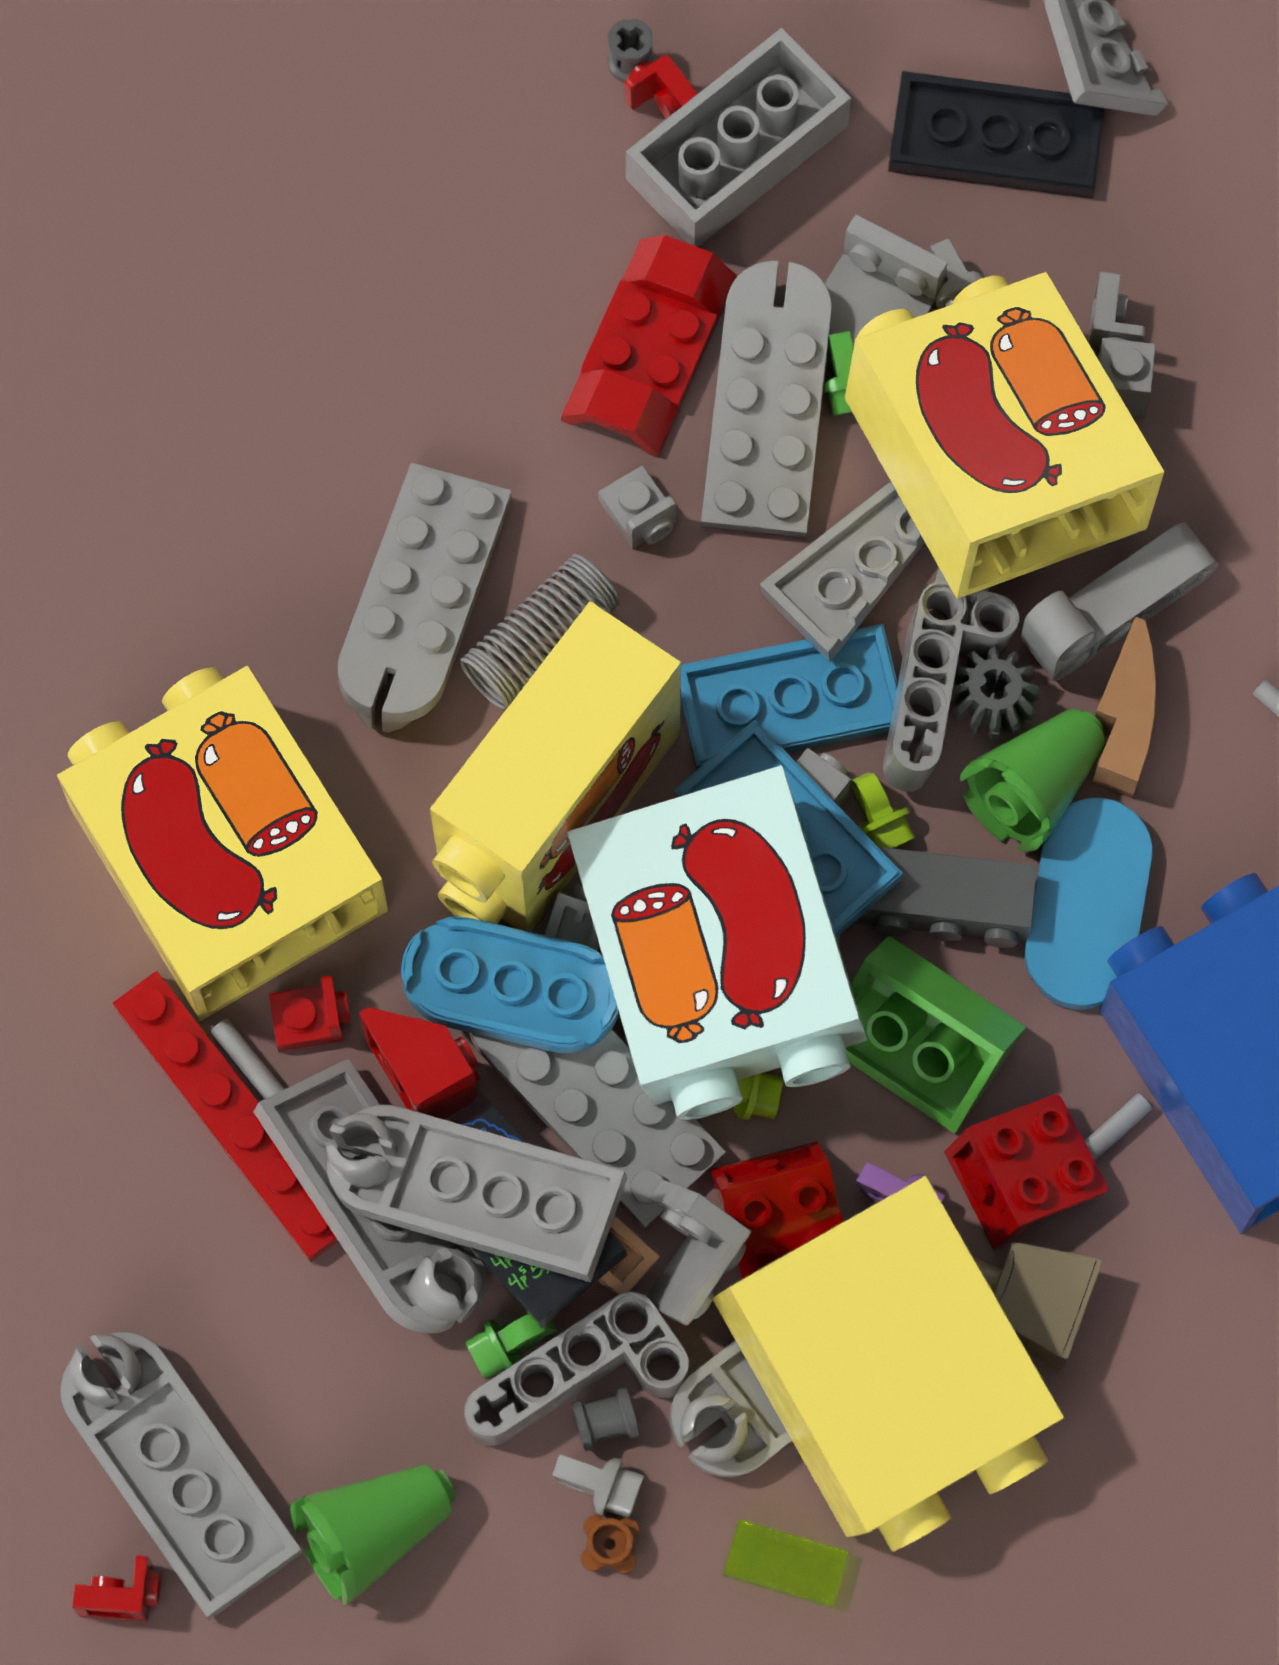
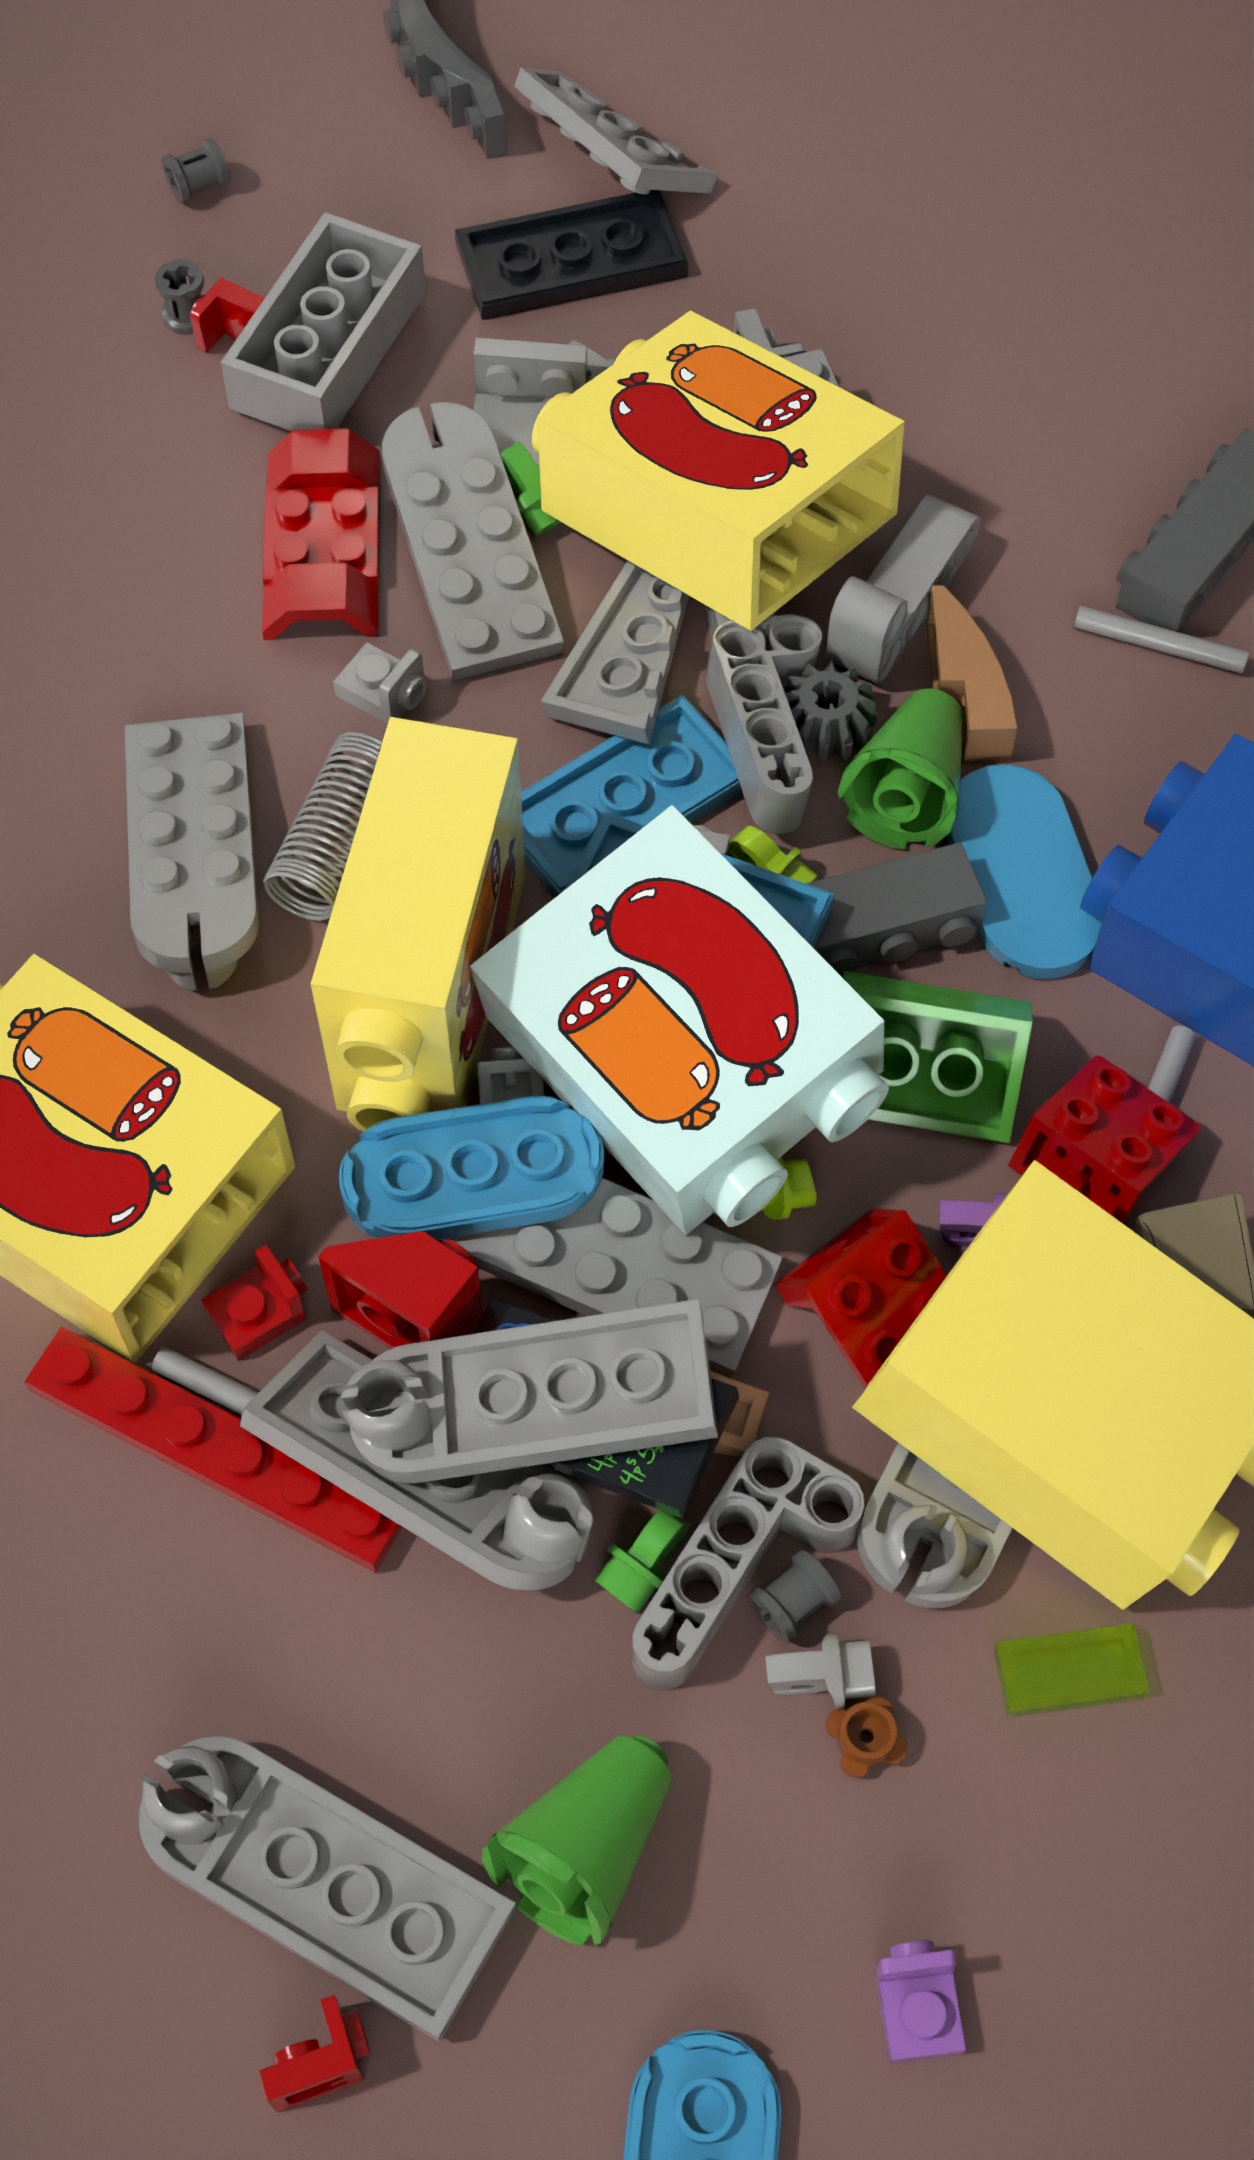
camera: 25 degrees left, 10 degrees down
(710, 1249) = (822, 1355): light grey bracket -> none

